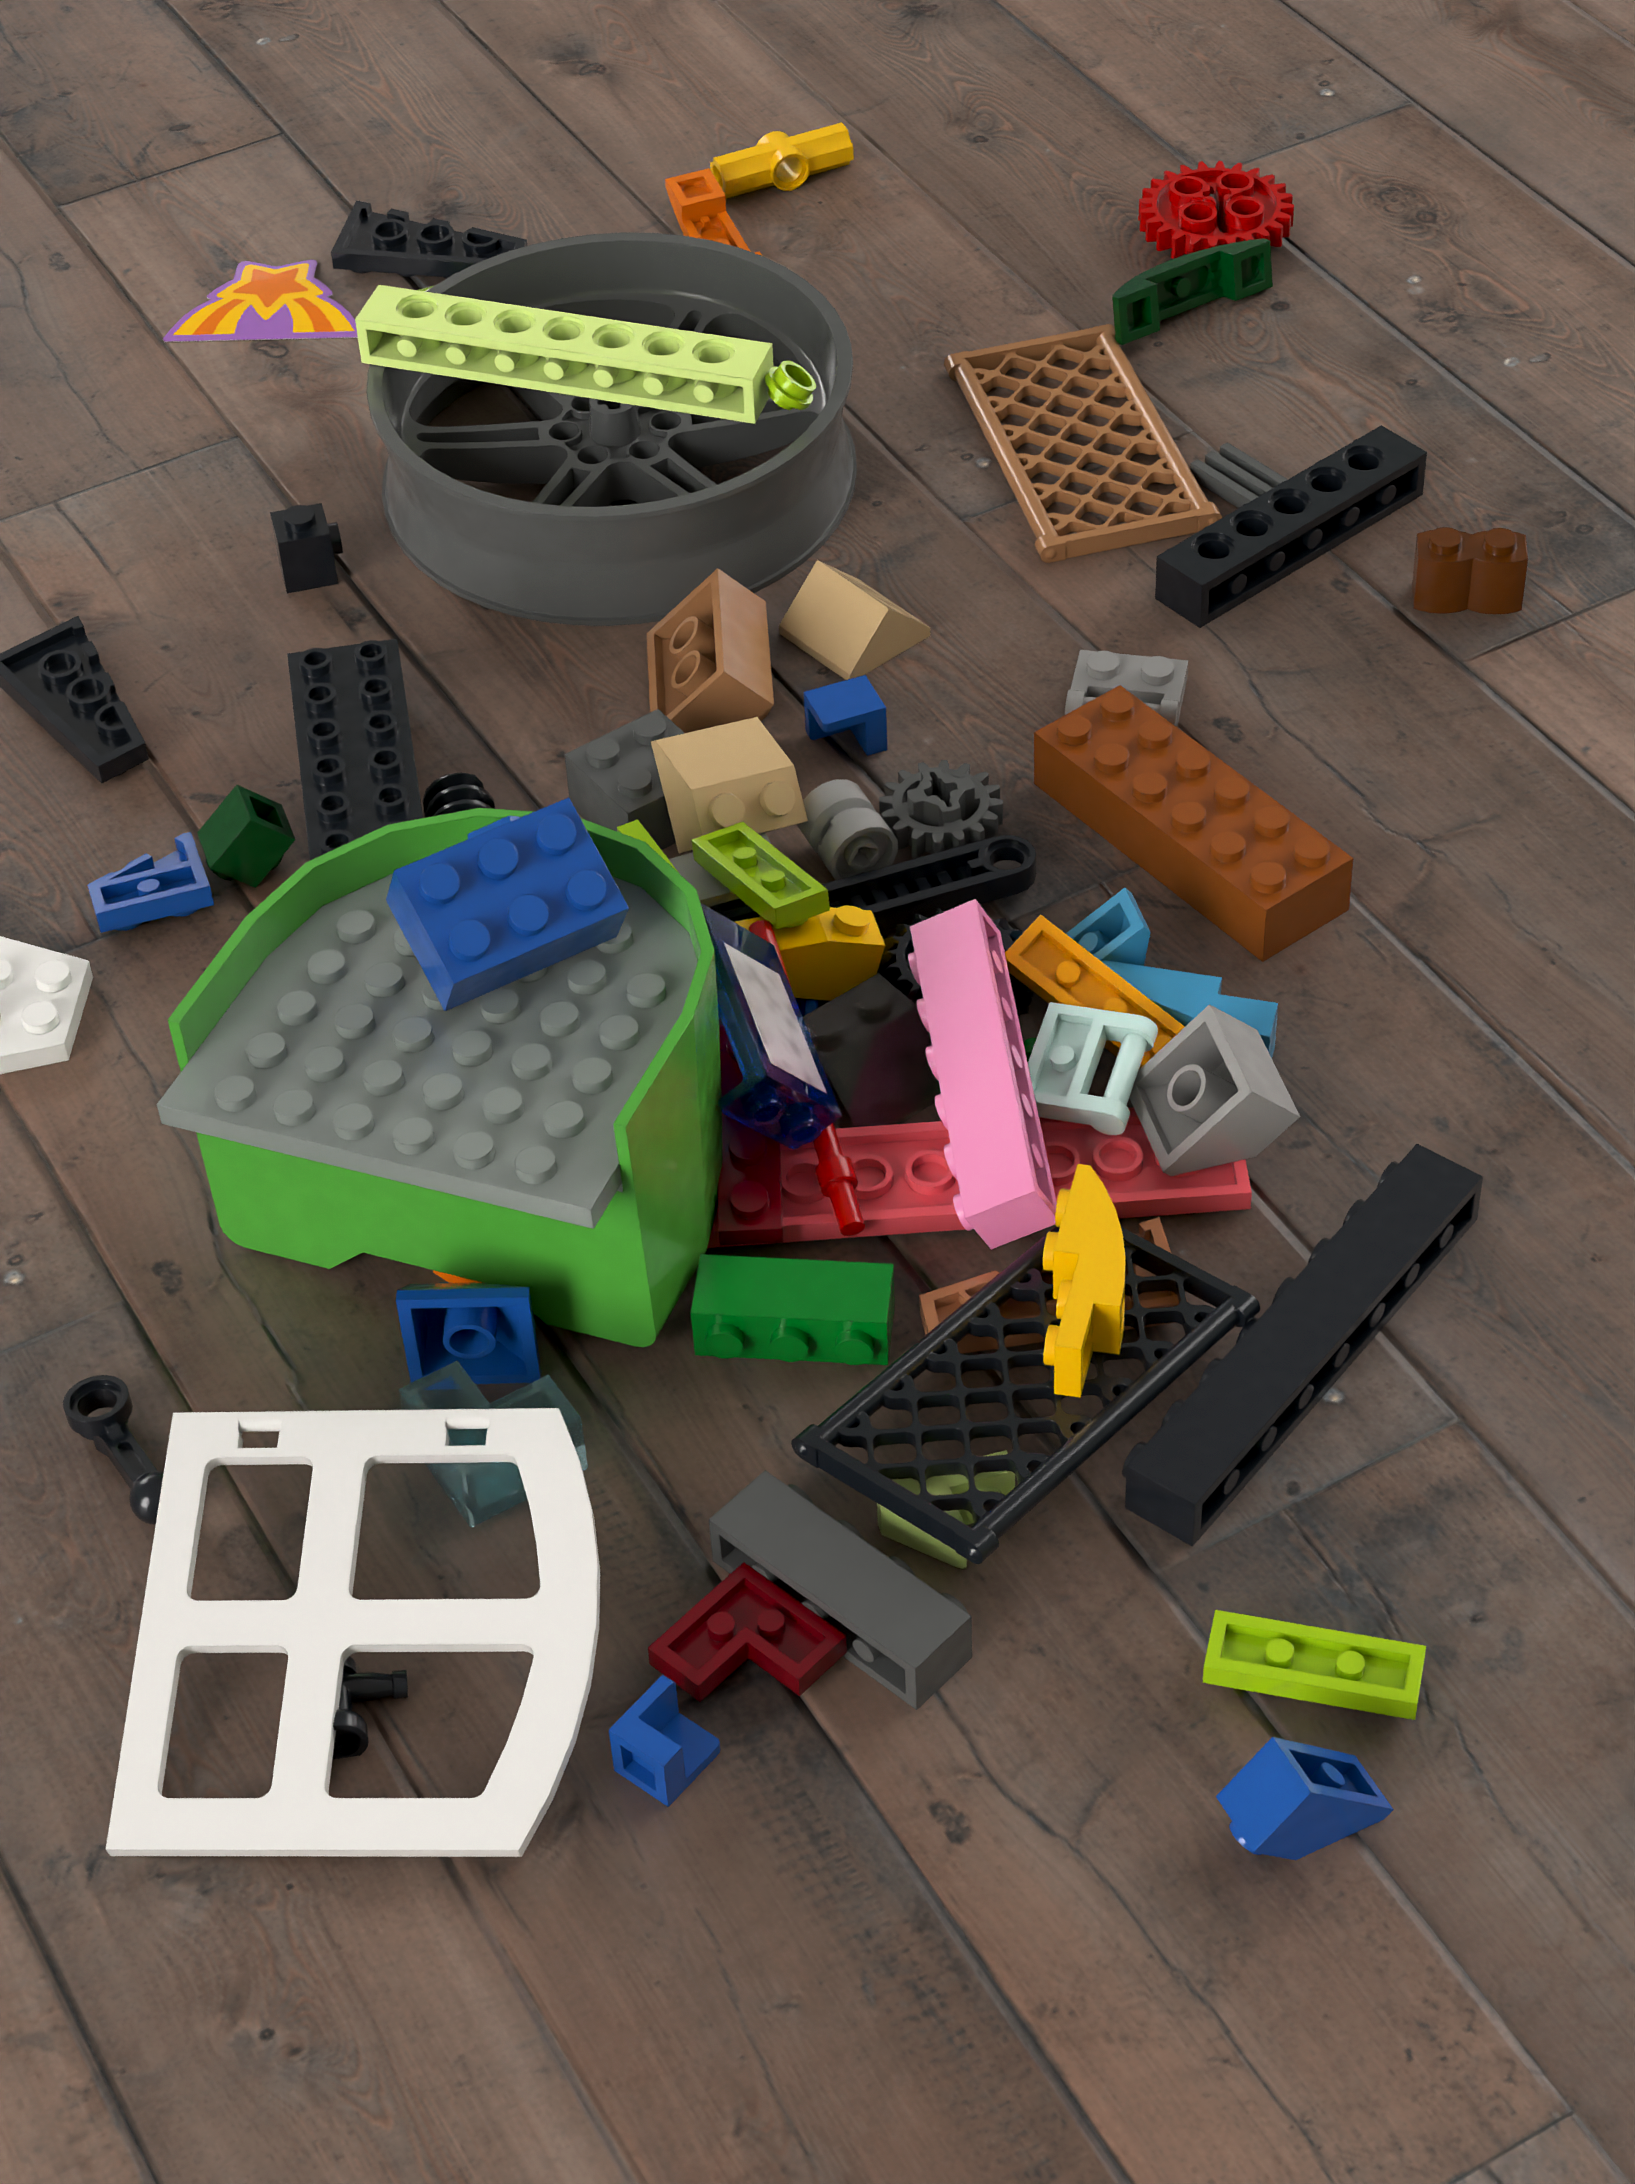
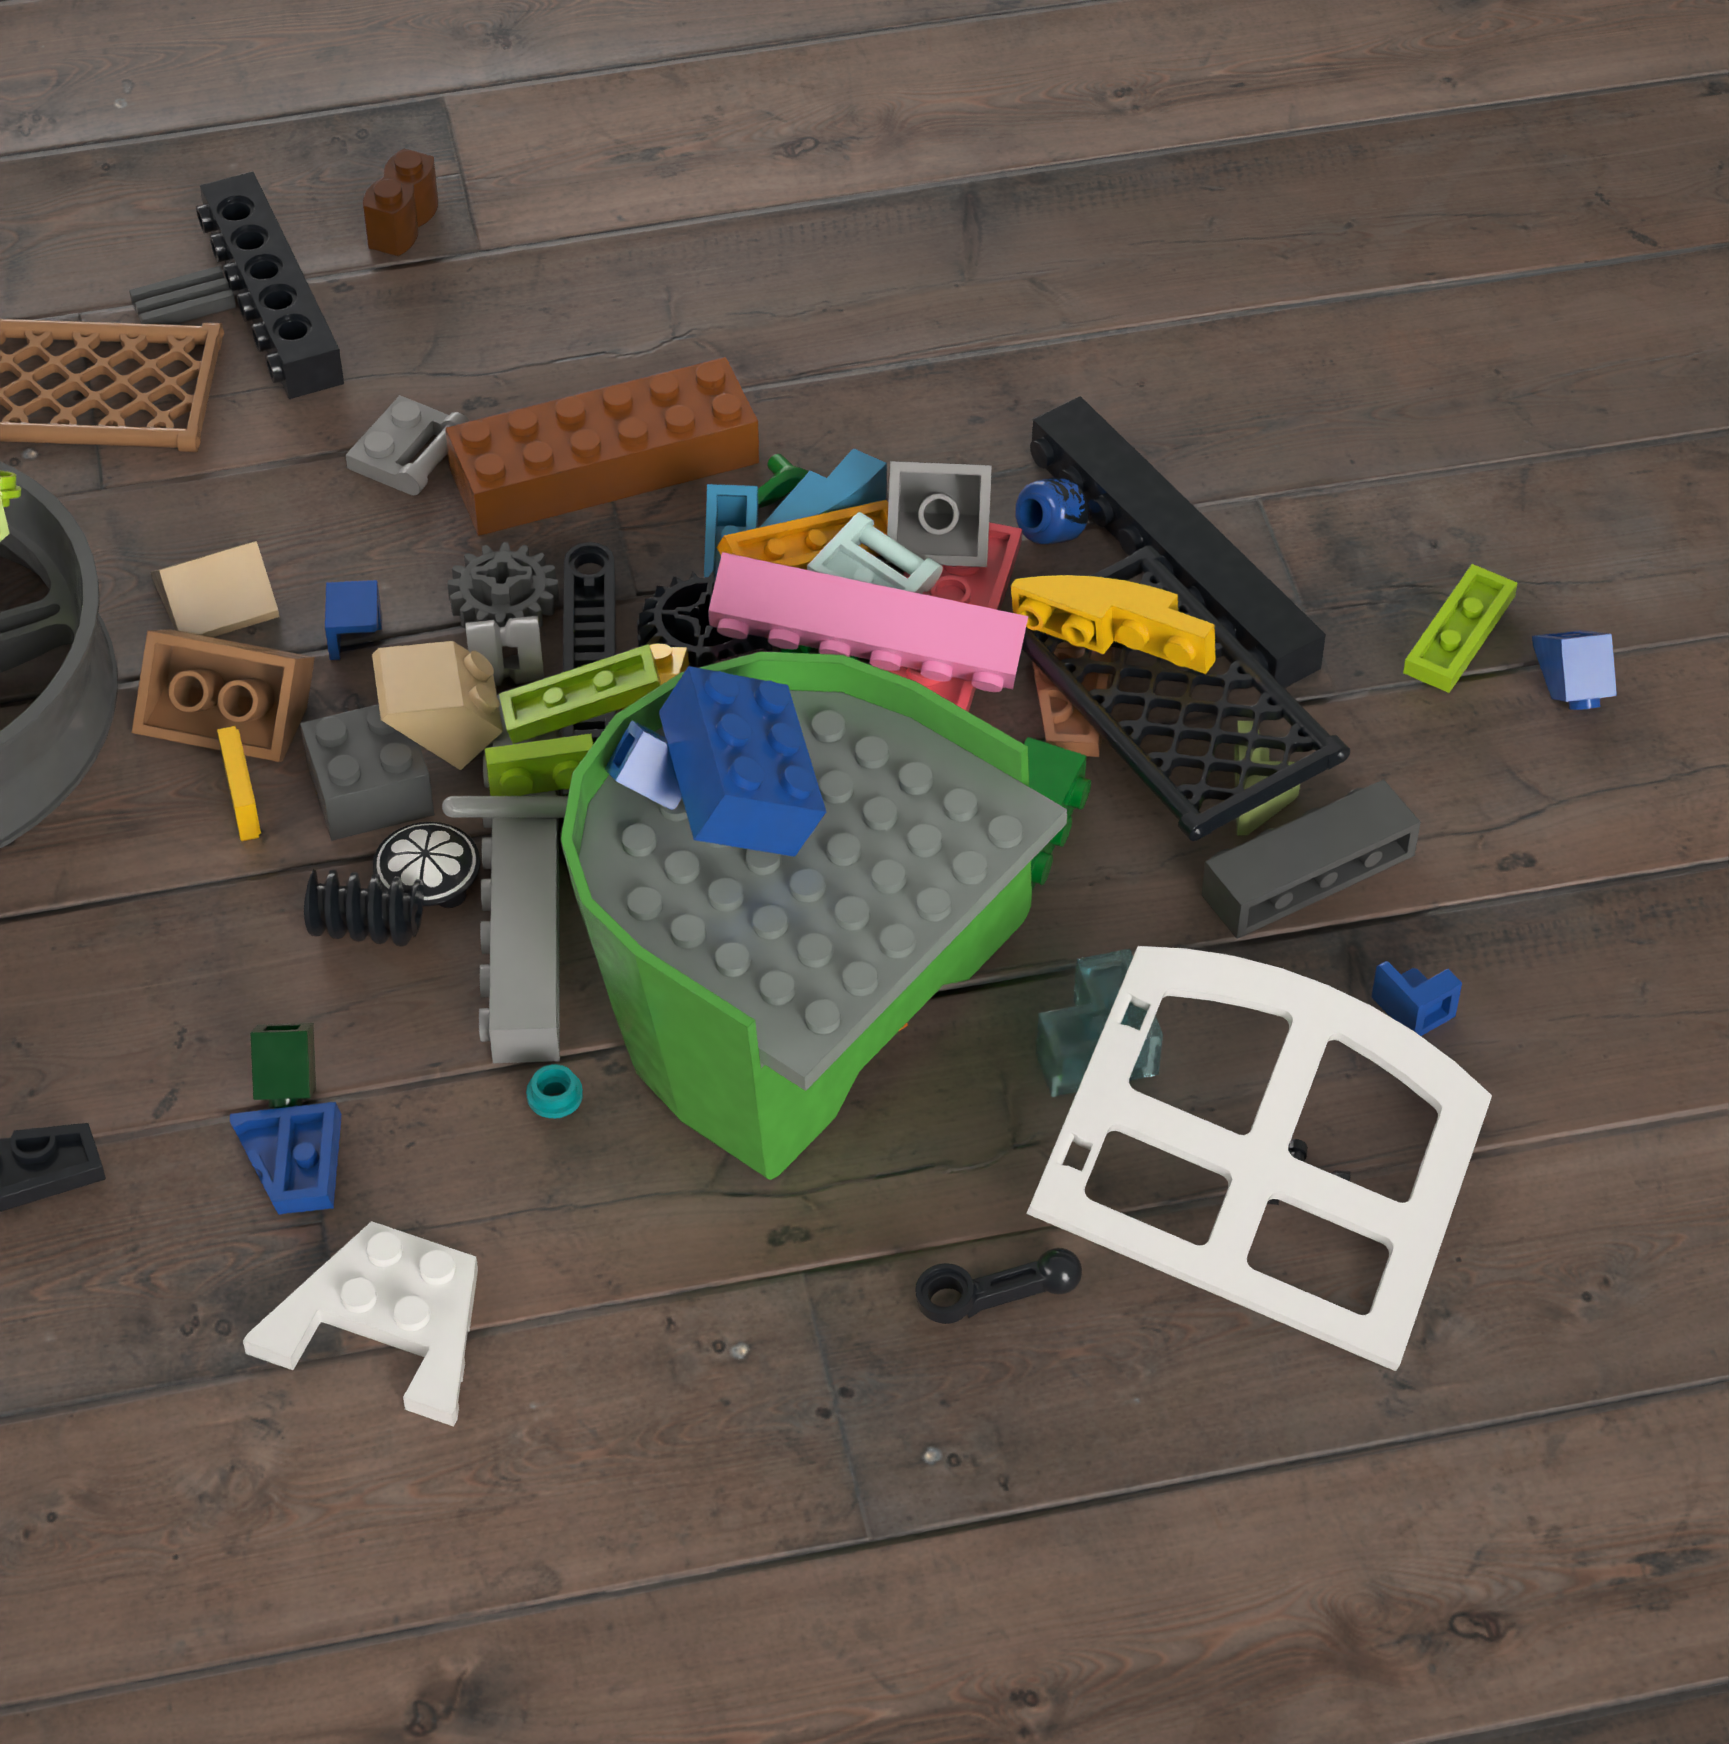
camera: 75 degrees left, 5 degrees up
(353, 742) = (265, 959): black piece -> none
(471, 1322) = (970, 1019): blue slope -> none
(594, 710) = (239, 783): none -> yellow tile
(742, 1621) = (1323, 921): dark red plate -> none
(1235, 981) = (782, 482): none -> green bar
(1291, 1209) = (1052, 511): none -> blue head

